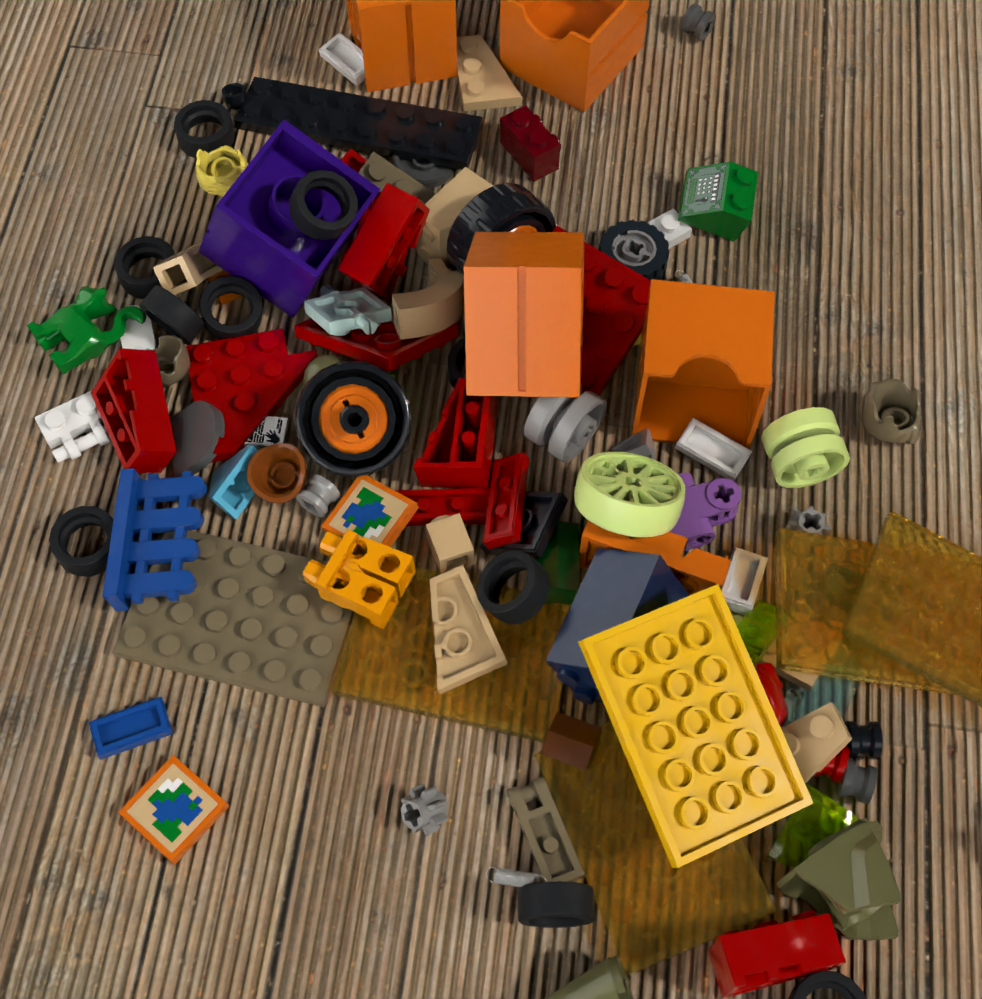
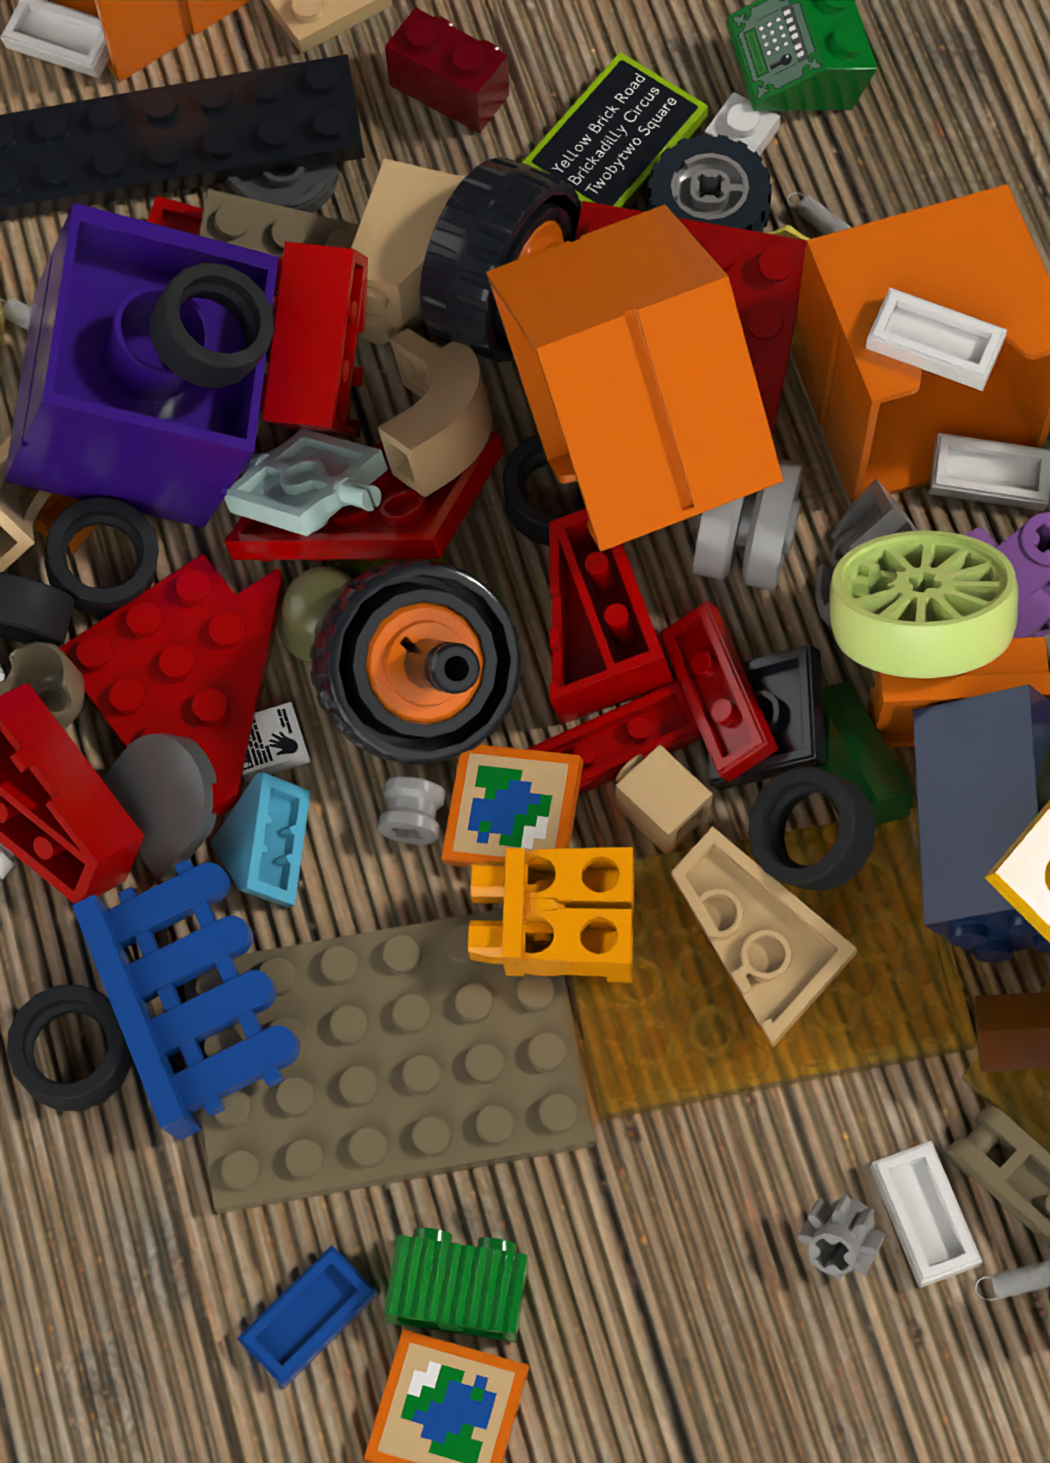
camera: 20 degrees left, 5 degrees up
(212, 745) = (457, 1285): none -> green brick
(277, 472) = (332, 801): dark orange helmet -> none
(479, 820) = (925, 1214): none -> white tile
(601, 205) = (618, 133): none -> black tile
(693, 353) = (936, 339): none -> white tile

